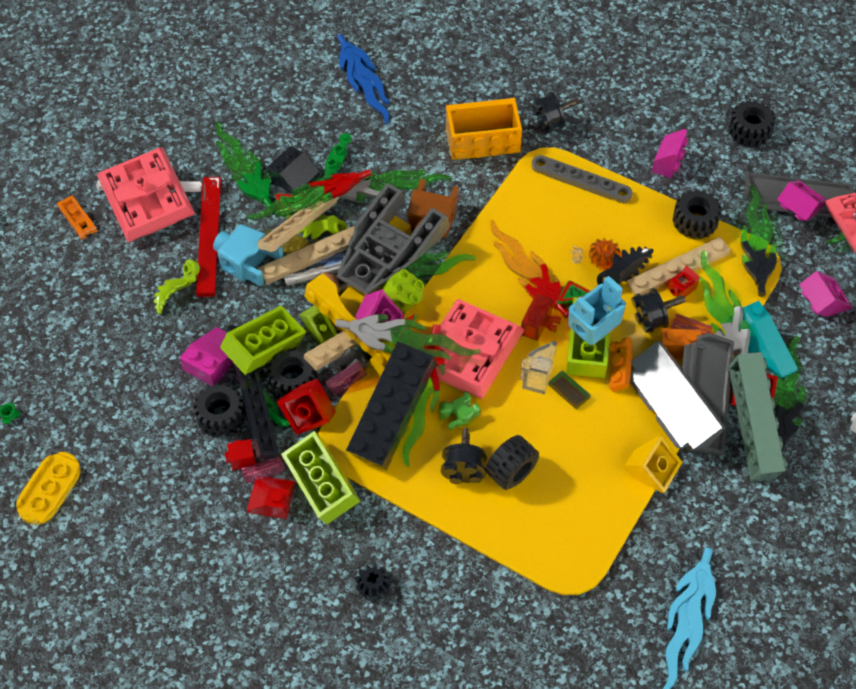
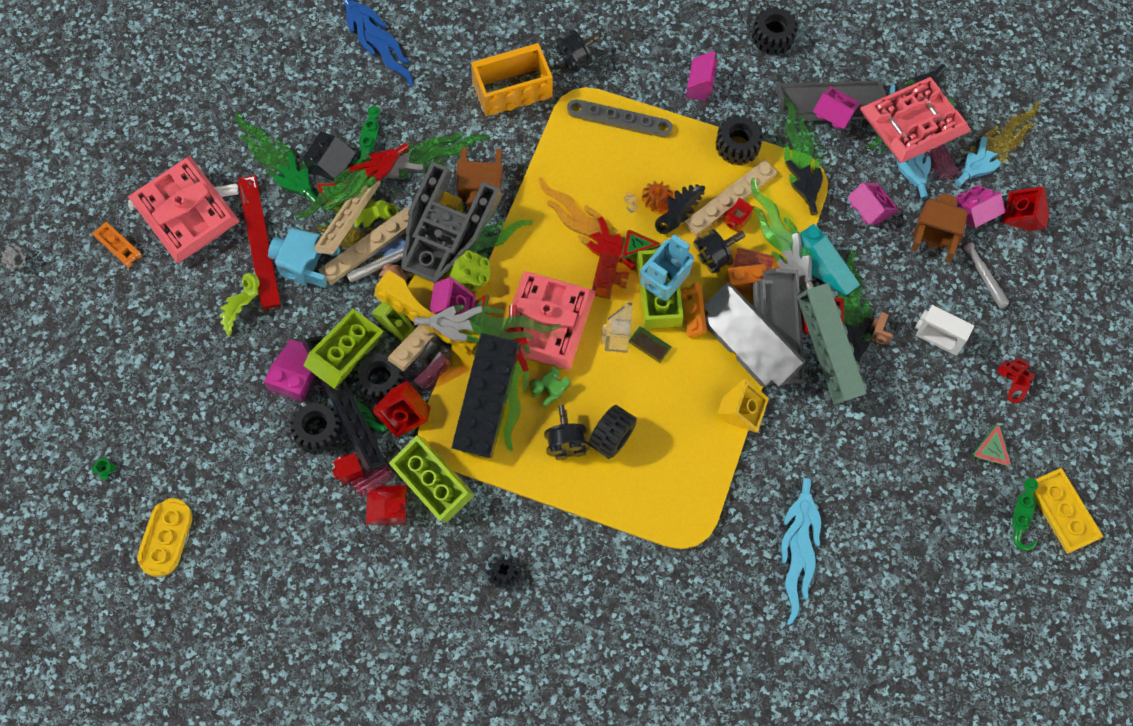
camera: 15 degrees left, 10 degrees up
(810, 420) = (878, 334): none -> nougat bracket

